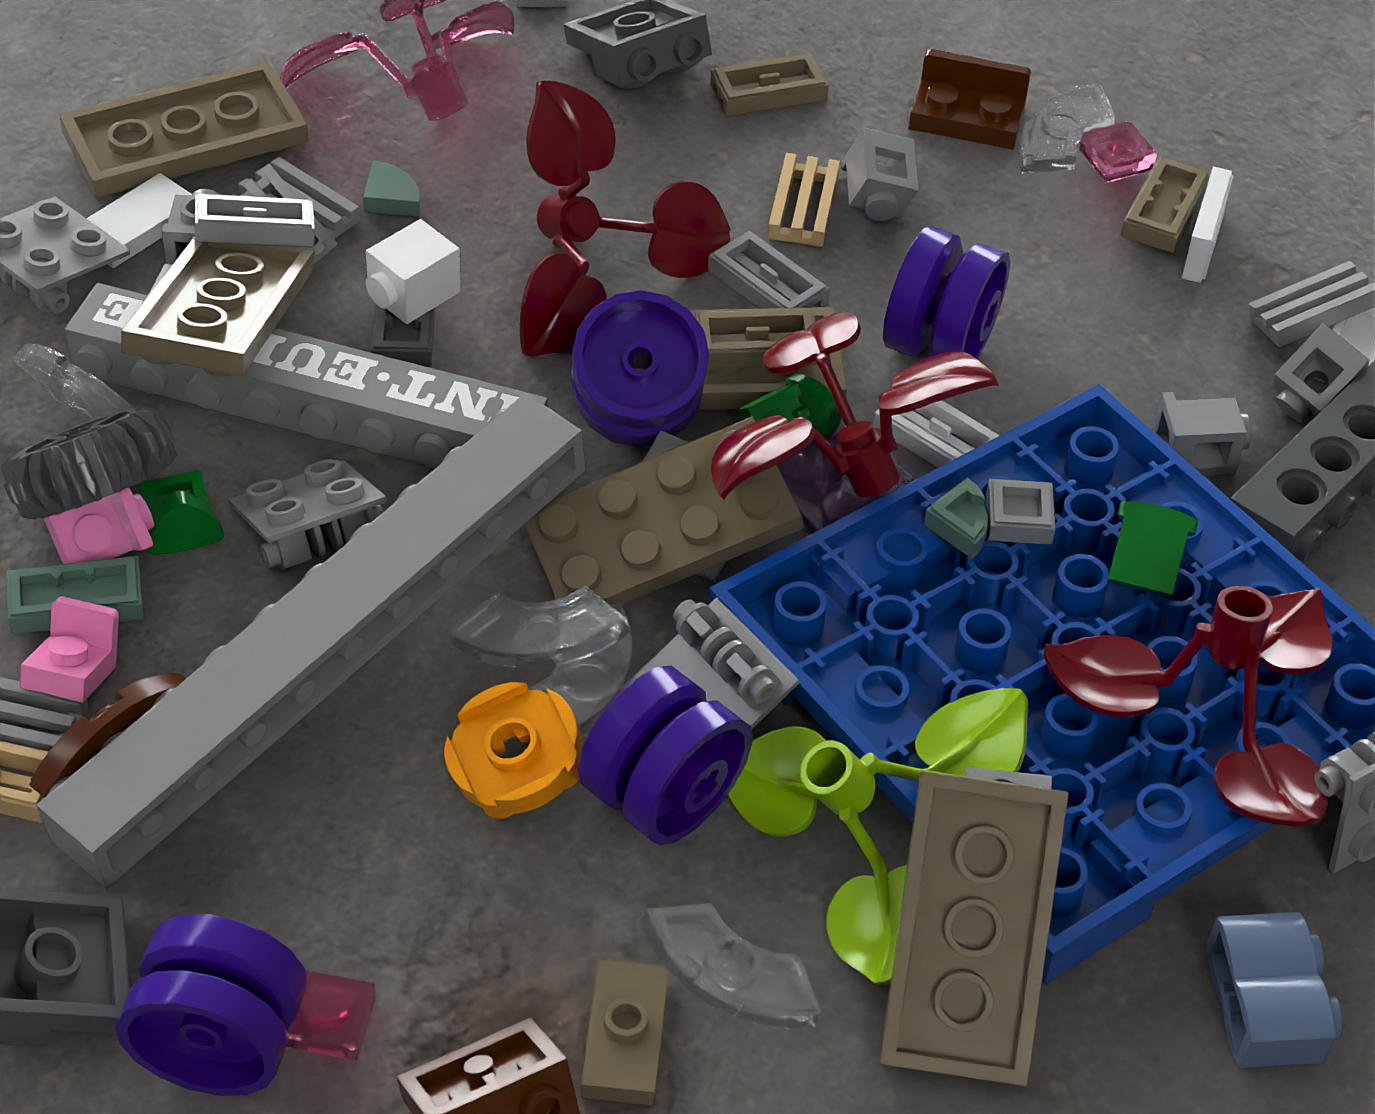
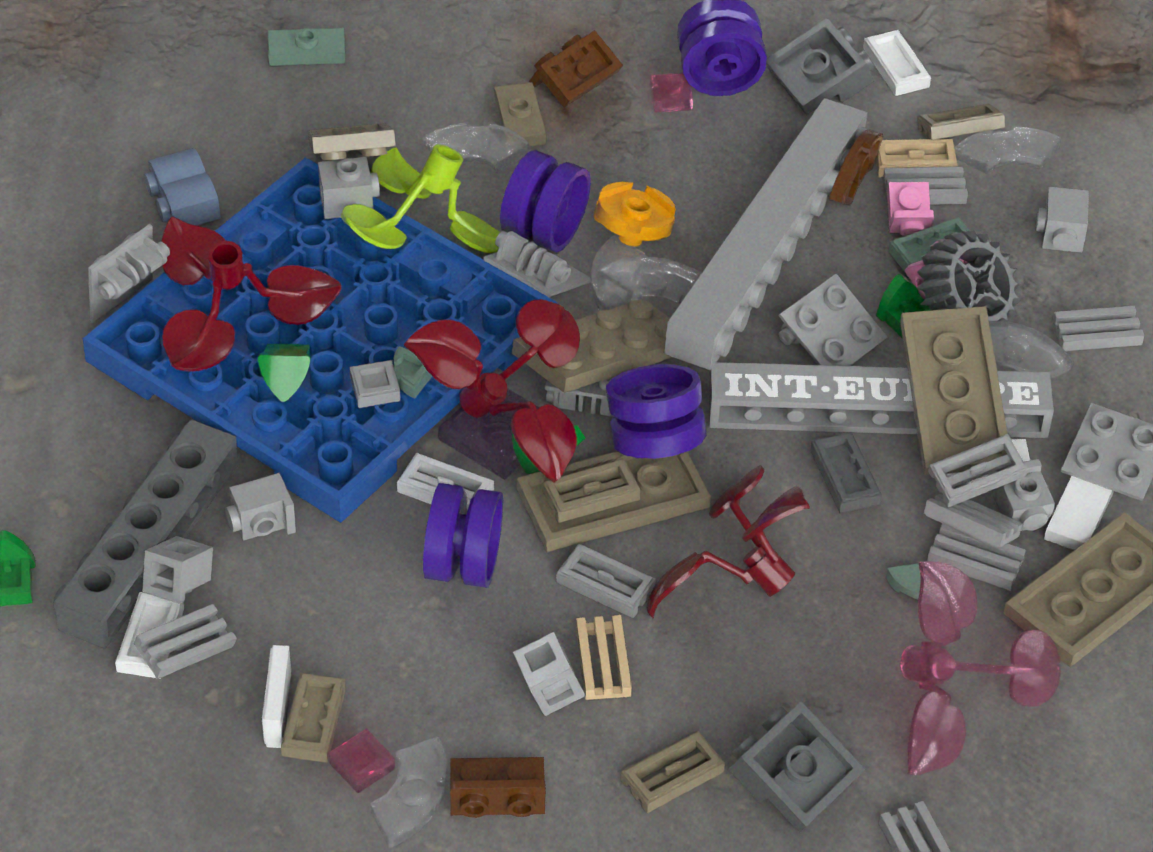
camera: 165 degrees right, 0 degrees up
(413, 271) = (847, 464): white brick -> none

